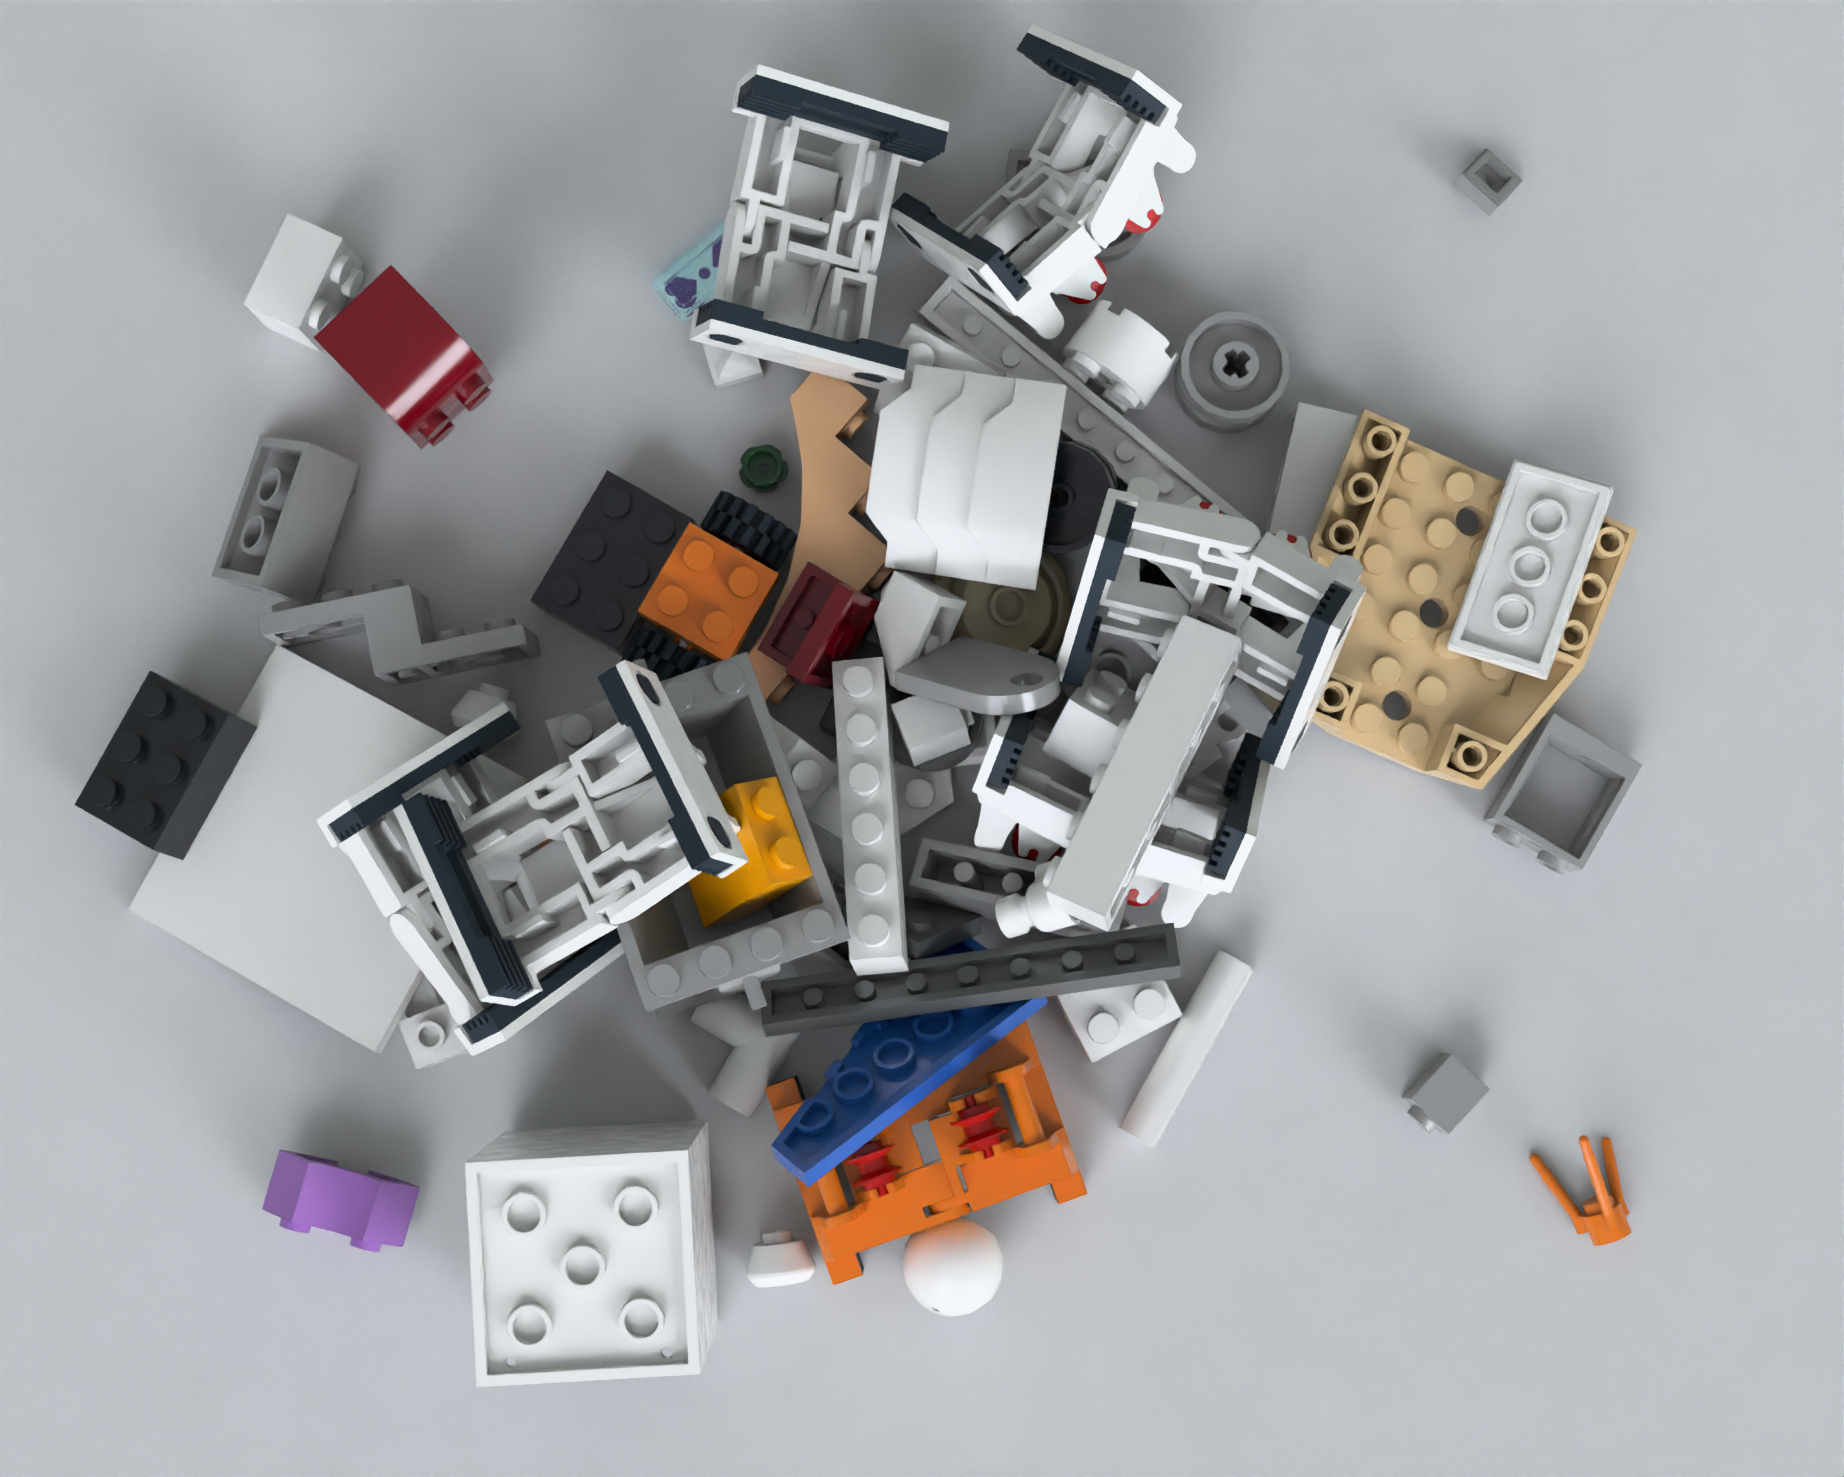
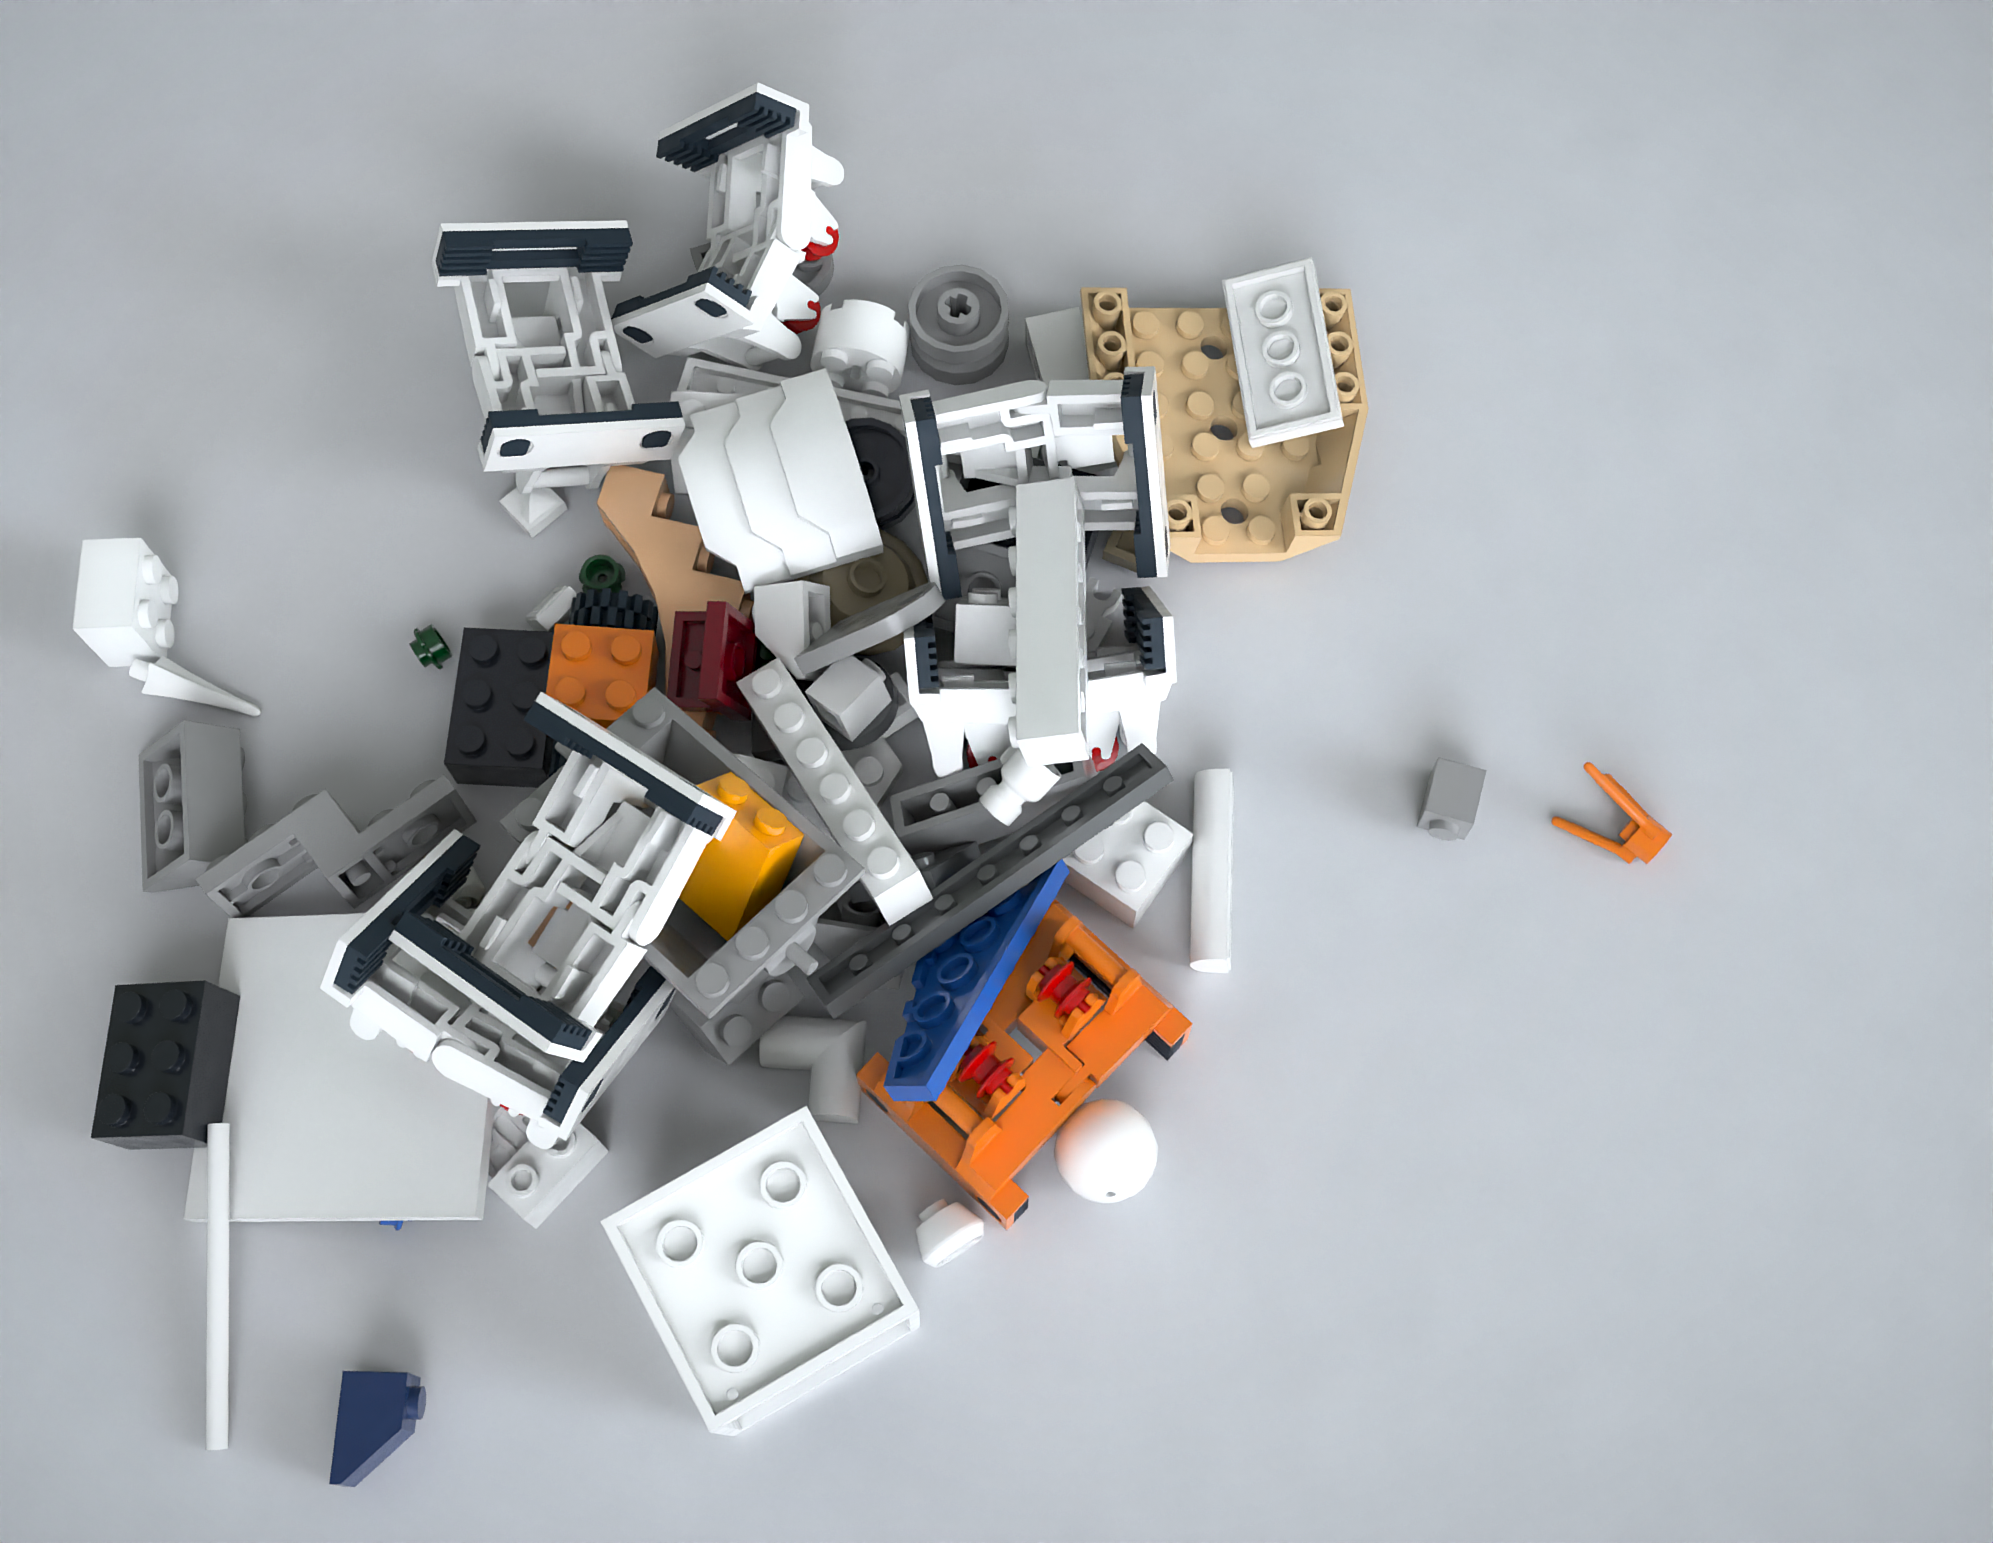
camera: 25 degrees left, 15 degrees down
(133, 985) = (217, 1287): none -> white piece
(219, 1168) = (372, 1421): none -> dark blue slope
(319, 379) = (173, 681): none -> white piece
(322, 1195) = (505, 1385): medium lavender brick -> none
(406, 358) = (238, 605): dark red brick -> none
(571, 462) = (430, 647): none -> dark green plate
(692, 277) = (462, 466): clear light blue tile -> none
(701, 481) = (552, 609): none -> white tile
(1487, 181) = (1087, 106): light grey tile -> none
(1590, 752) = (1413, 477): light grey window -> none

